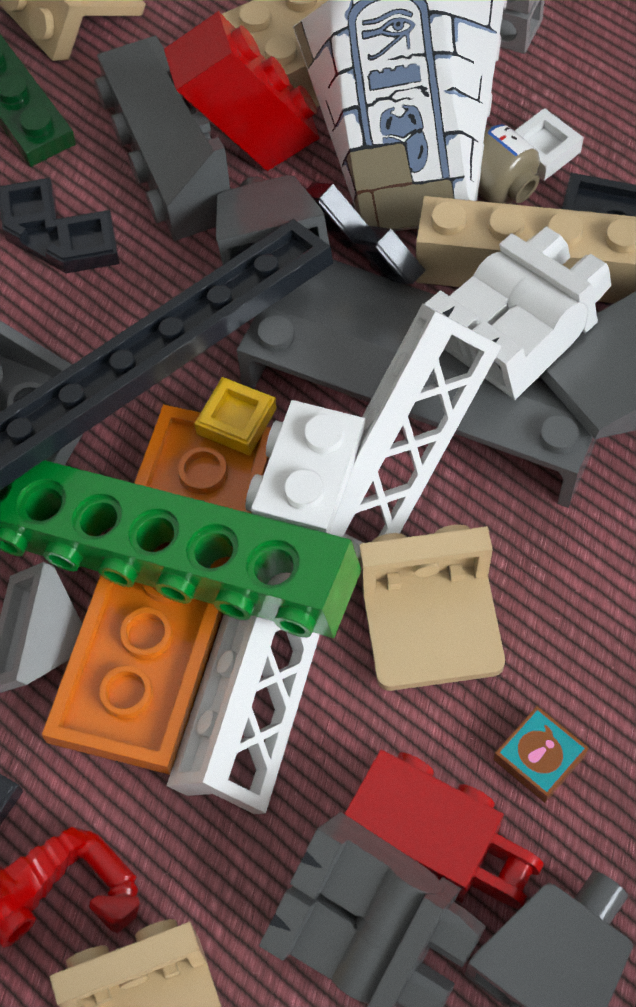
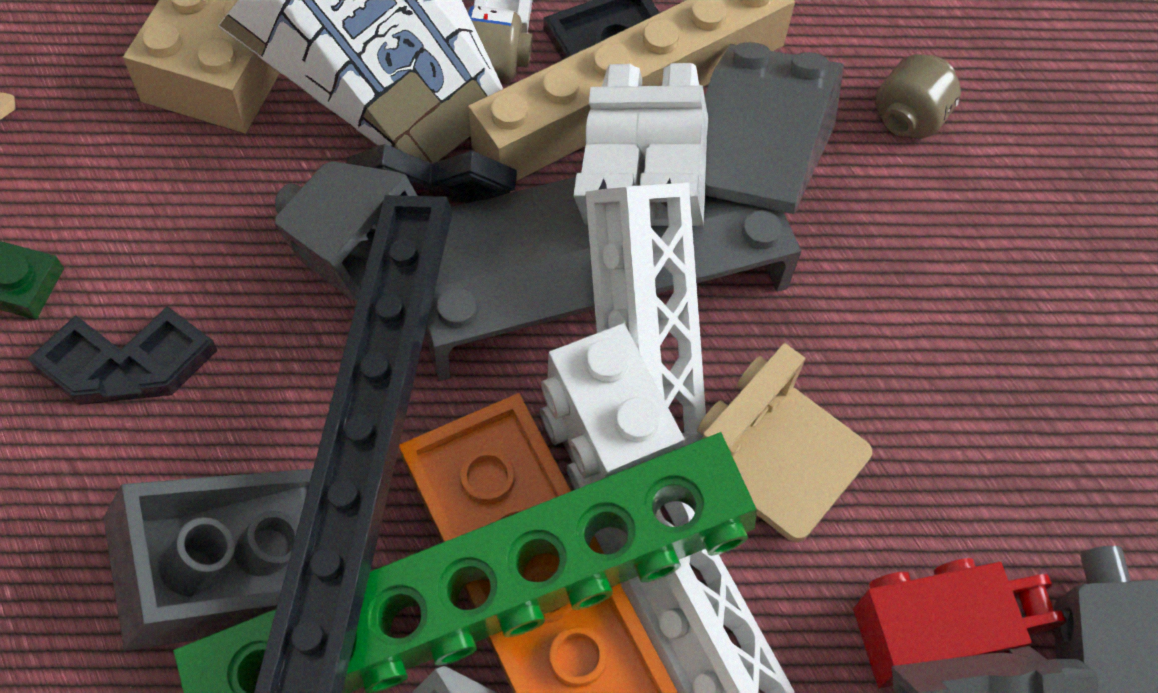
camera: 50 degrees left, 0 degrees up
(166, 137) = (163, 200): dark grey wedge -> none
(235, 416) = (478, 406): yellow tile -> none
(242, 91) = (224, 108): red brick -> none
(540, 754) = (956, 495): tile -> none

